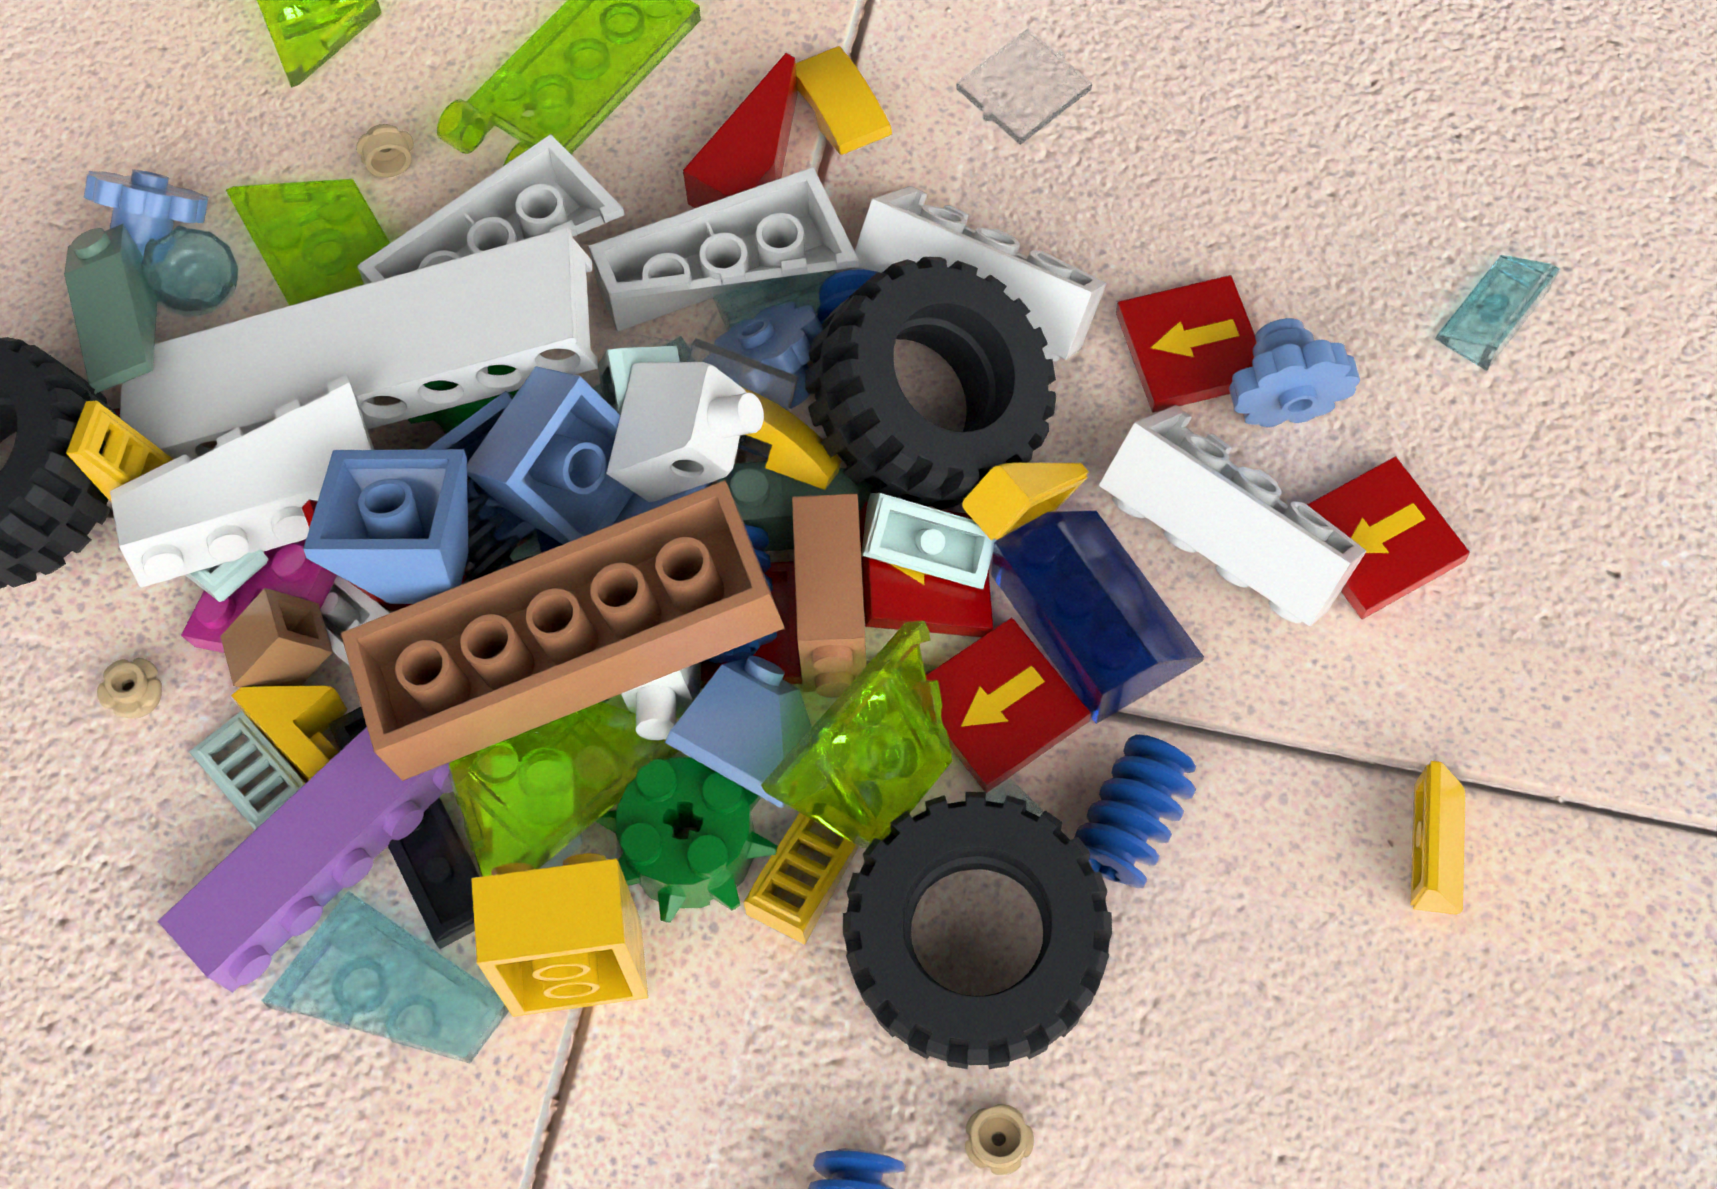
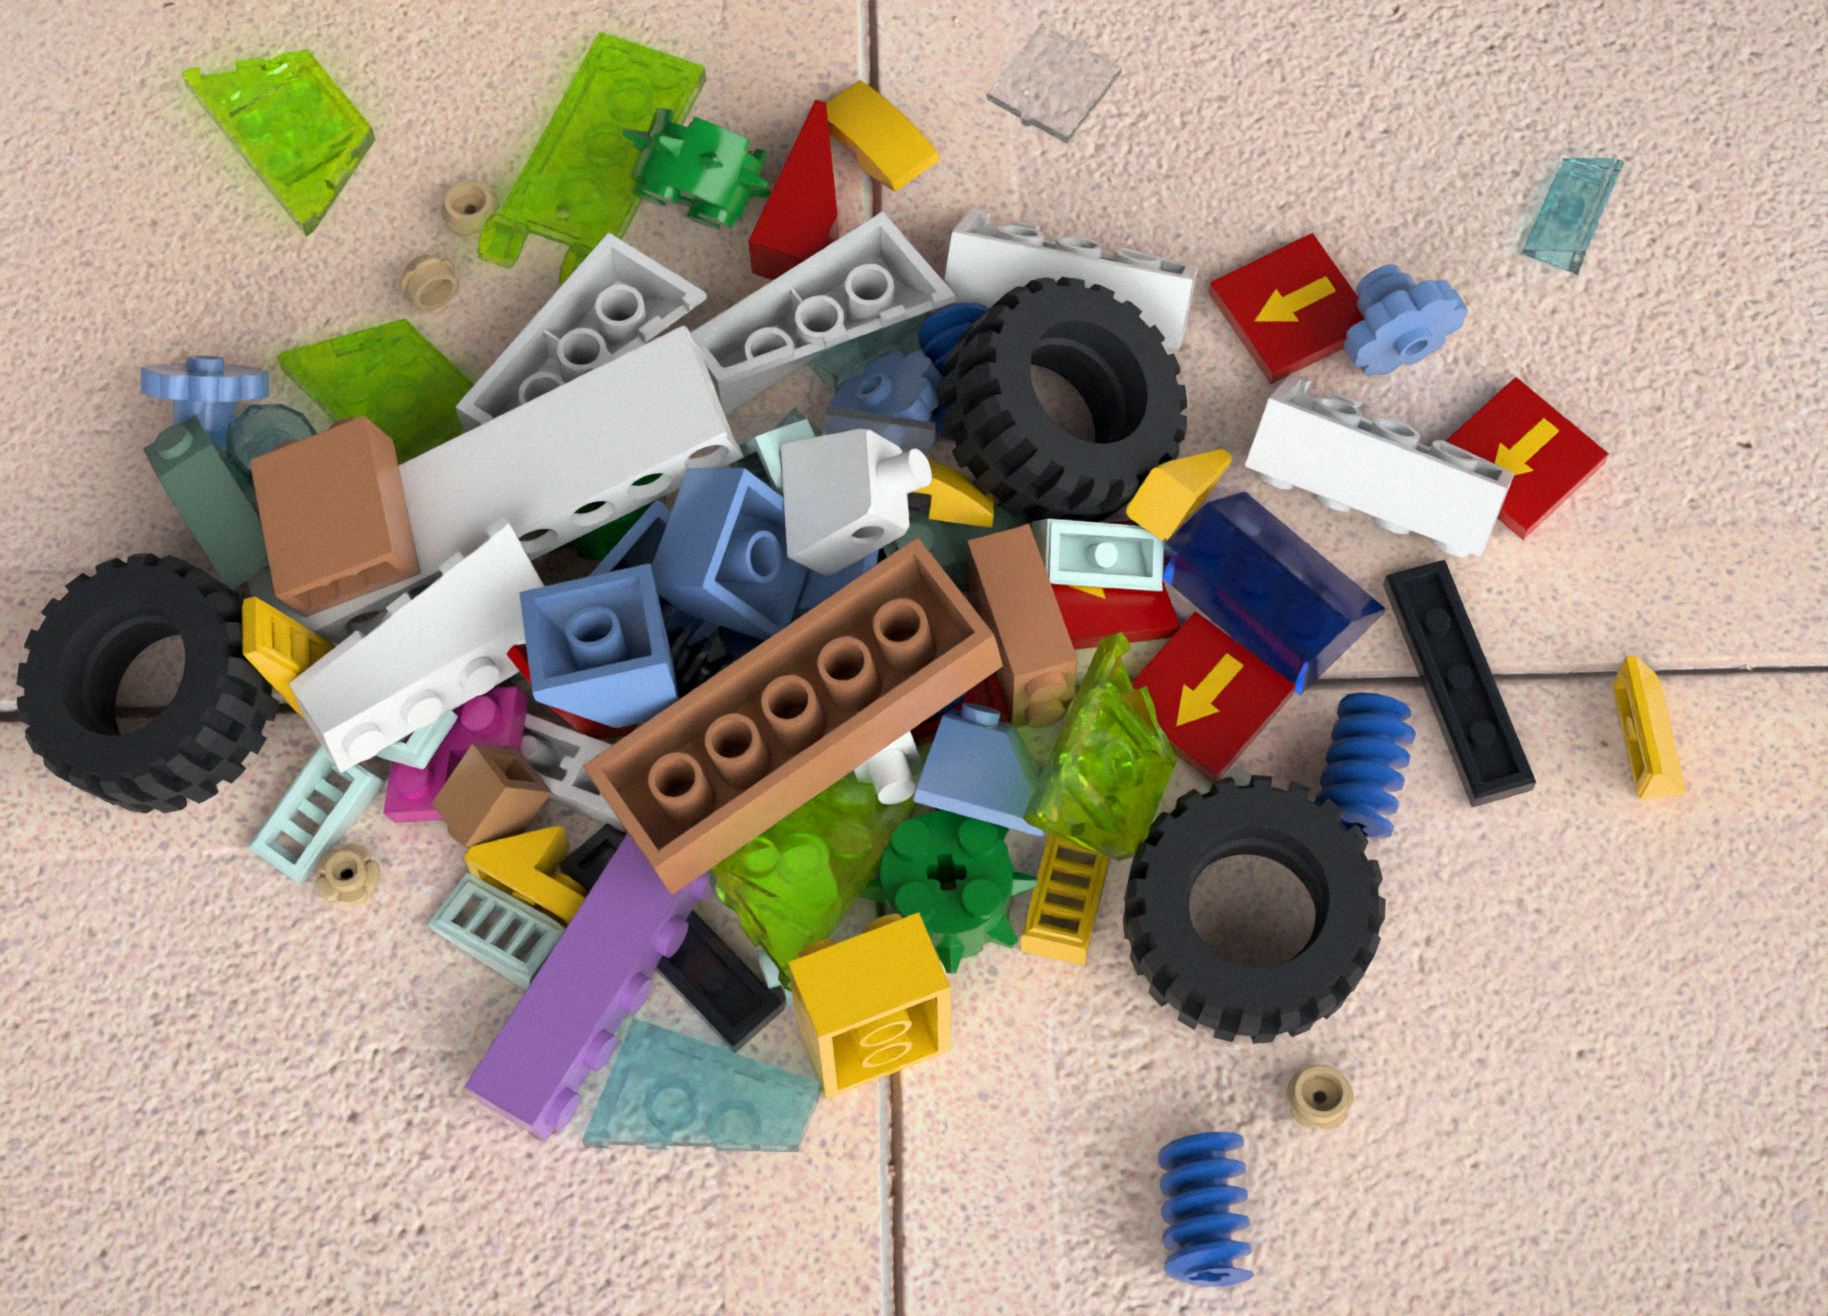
camera: 15 degrees left, 0 degrees up
(155, 620) = (297, 798): none -> light aqua slope
(203, 342) = (334, 516): none -> nougat brick
(439, 81) = (464, 197): none -> tan plate
(654, 92) = (697, 168): none -> green brick
(1257, 750) = (1459, 683): none -> black tile

